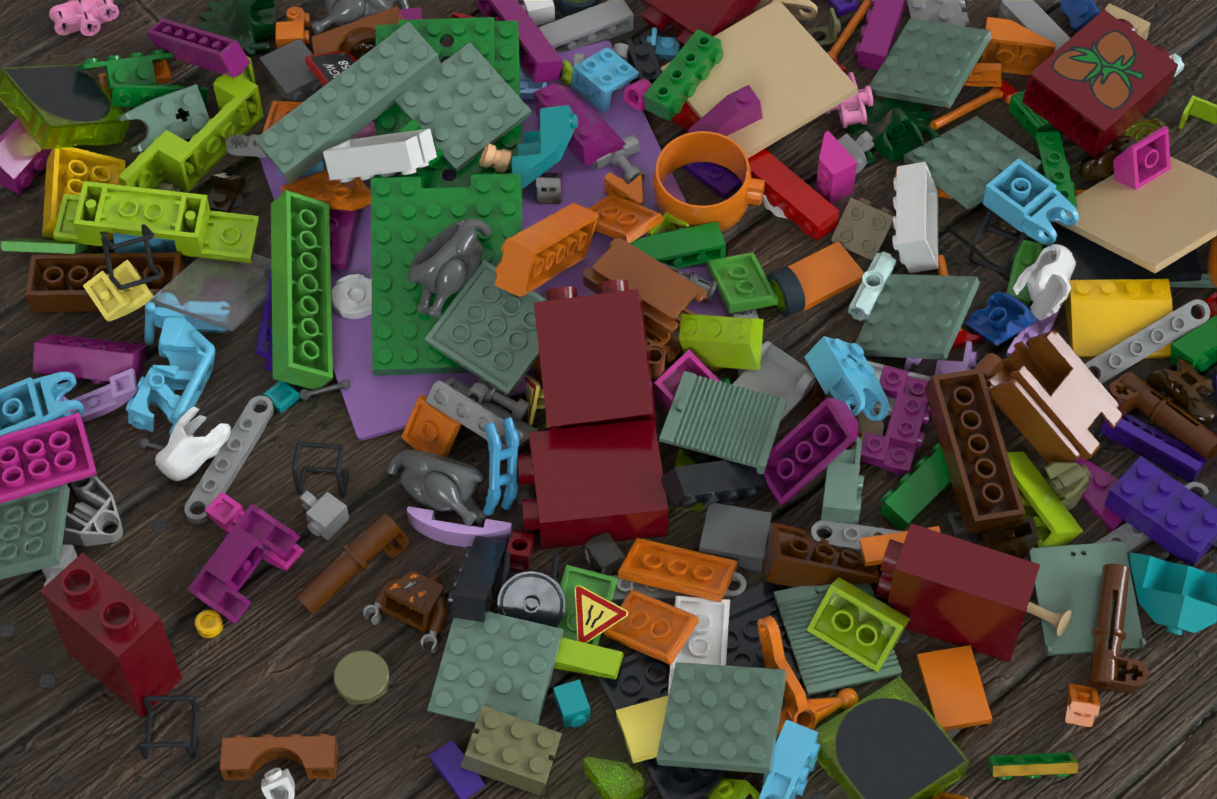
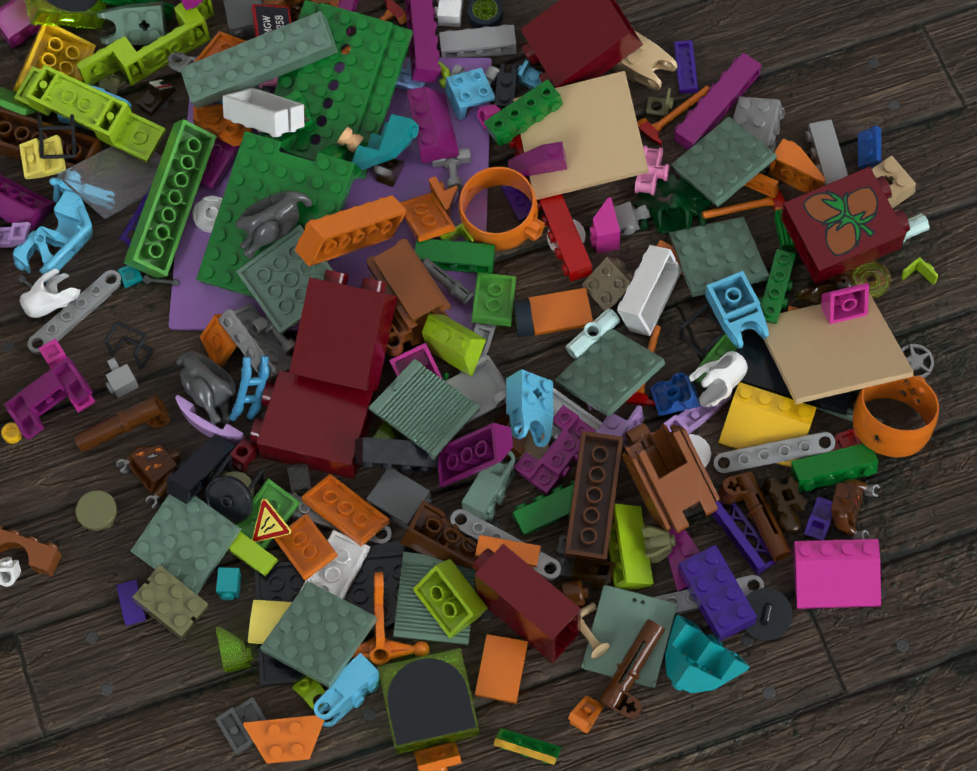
camera: 25 degrees right, 10 degrees up
(464, 106) = (342, 89): sand green plate -> none

